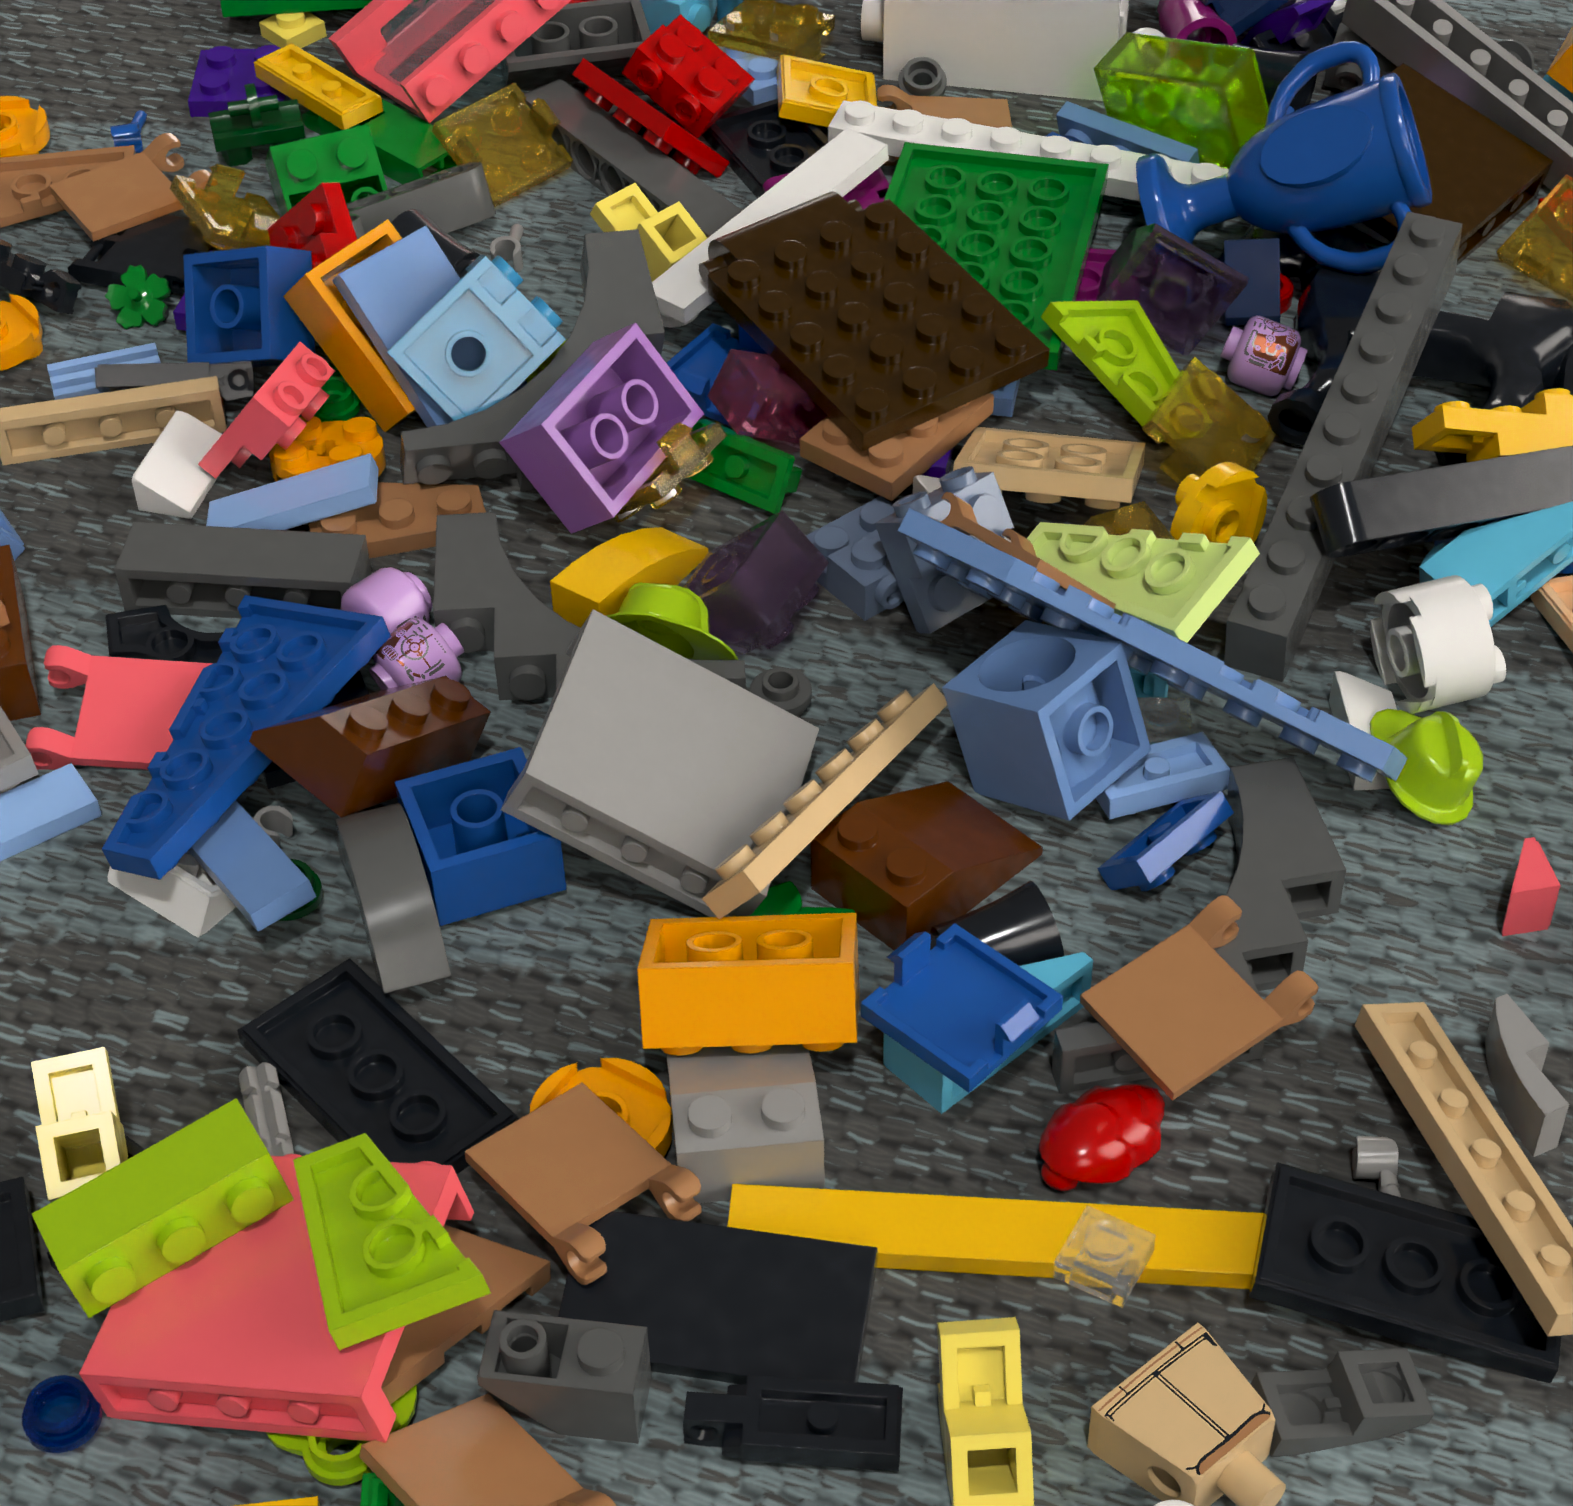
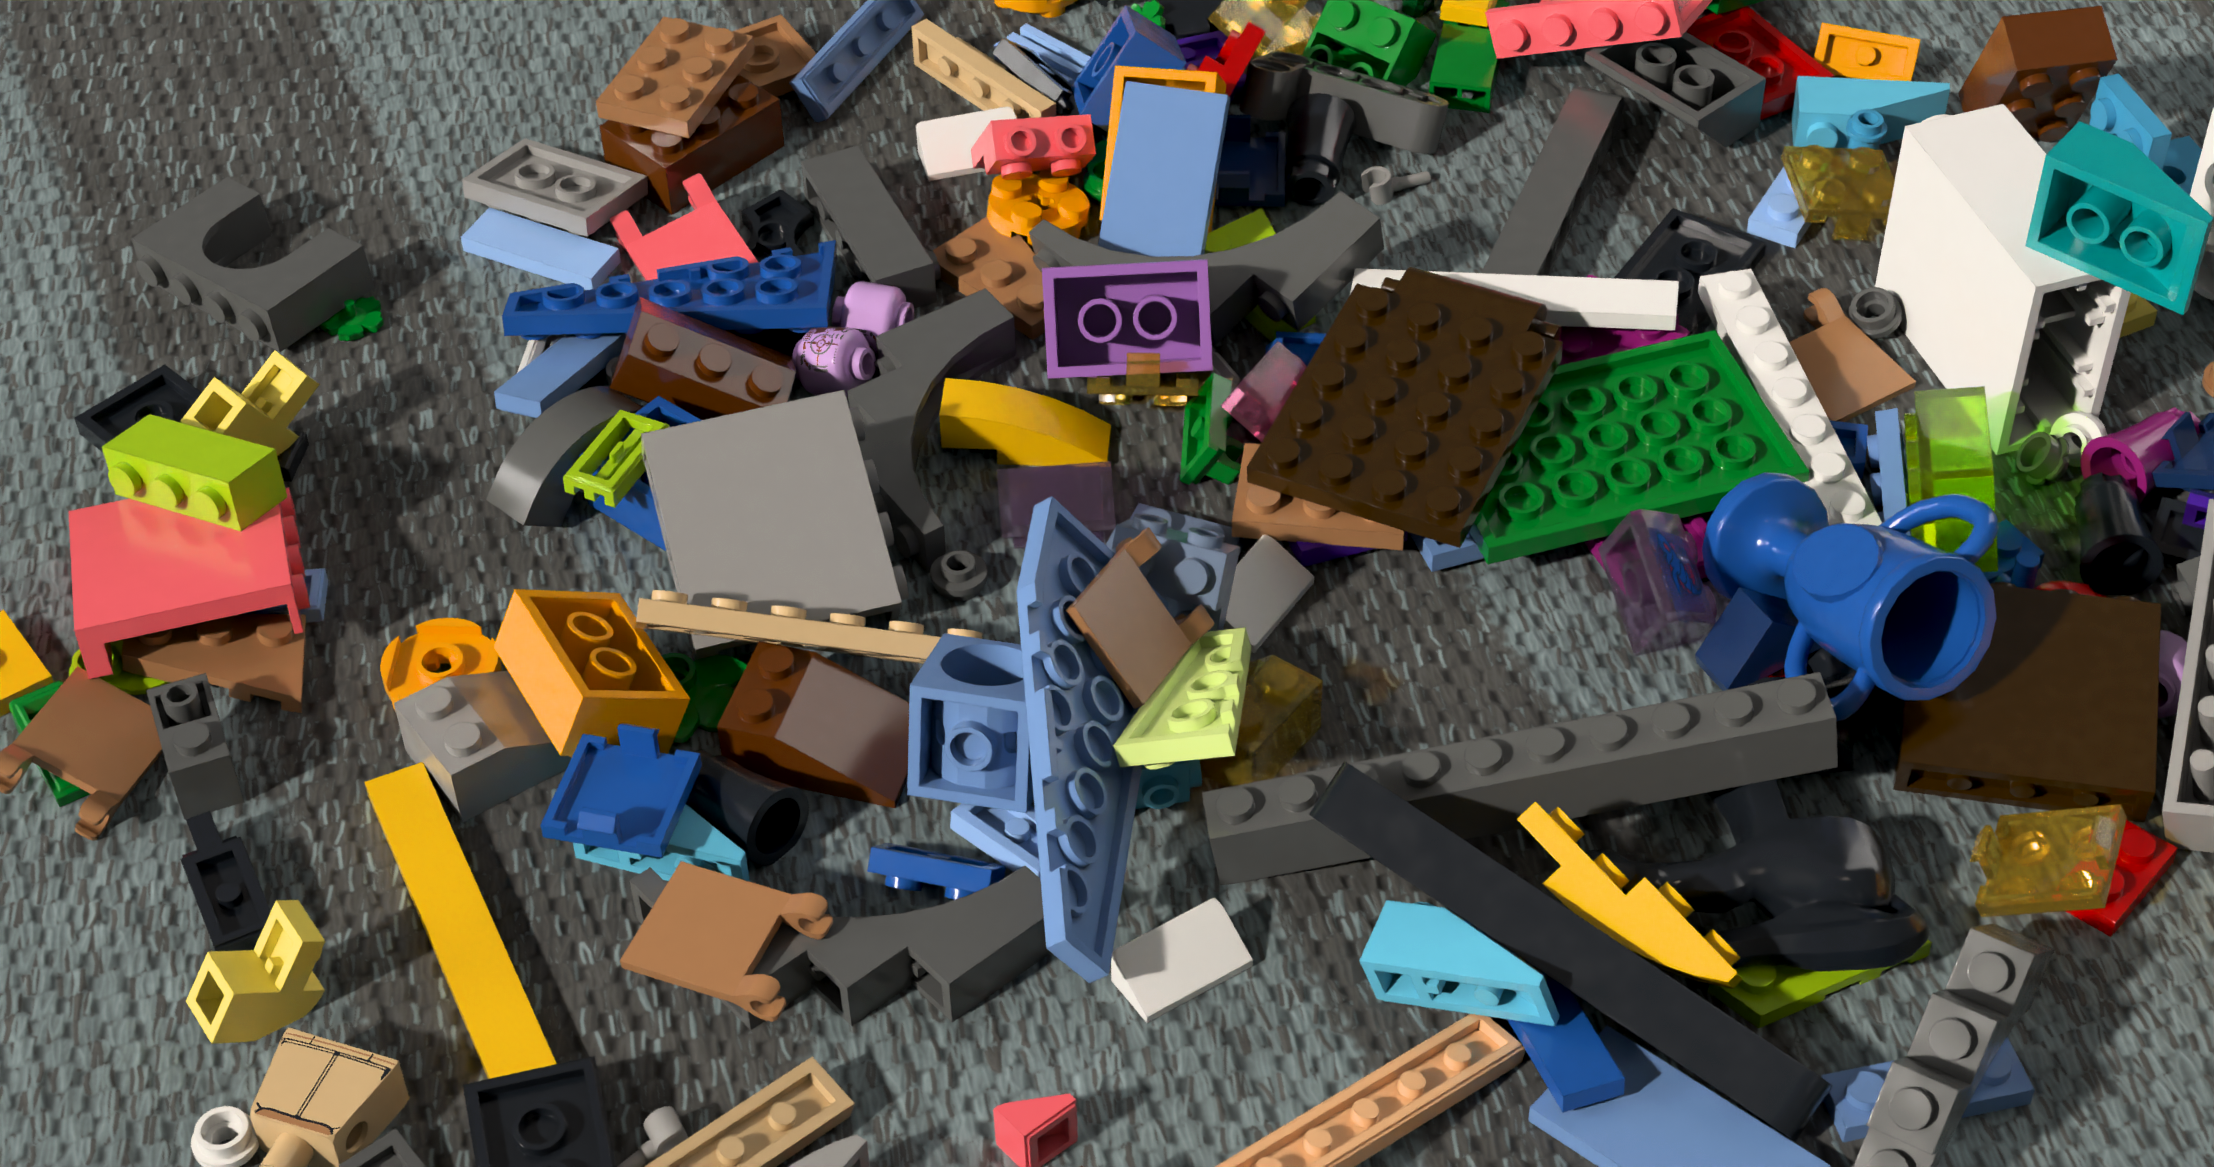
camera: 60 degrees right, 0 degrees up
(60, 1414) = (52, 529): clear blue plate -> none
(265, 1107) = (349, 507): light grey axle -> none
(300, 497) = (961, 214): light blue tile -> none
(374, 1071) = (418, 545): black tile -> none
(376, 1245) = (192, 572): lime wing -> none
(490, 308) = (1191, 195): dark azure bracket -> none
(496, 869) = (621, 469): none -> lime tile
(507, 140) = (1502, 109): clear yellow piece -> none
(575, 1166) = (366, 662): medium nougat flag -> none
(660, 129) = (1616, 172): red plate -> none
(664, 234) = (1454, 234): light yellow brick -> none
(672, 619) = (961, 467): lime piece -> none
(687, 75) = (1688, 161): red plate -> none
(731, 1298) = (309, 800): black tile -> none
(815, 90) = (1785, 258): yellow plate -> none
(1056, 465) = (1340, 608): tan plate -> none
(1101, 1136) = (585, 953): red arm -> none
(1104, 1256) = (456, 993): clear plate -> none
(1118, 348) = (1535, 606): lime wing -> none
(1206, 425) = (1492, 687): clear yellow piece -> none
(1220, 504) = (1348, 714): yellow plate -> none
(1264, 356) = (1644, 682): lavender head -> none
(1437, 643) = (1290, 948): white brick -> none
(1440, 763) = (1161, 1009): lime piece -> none

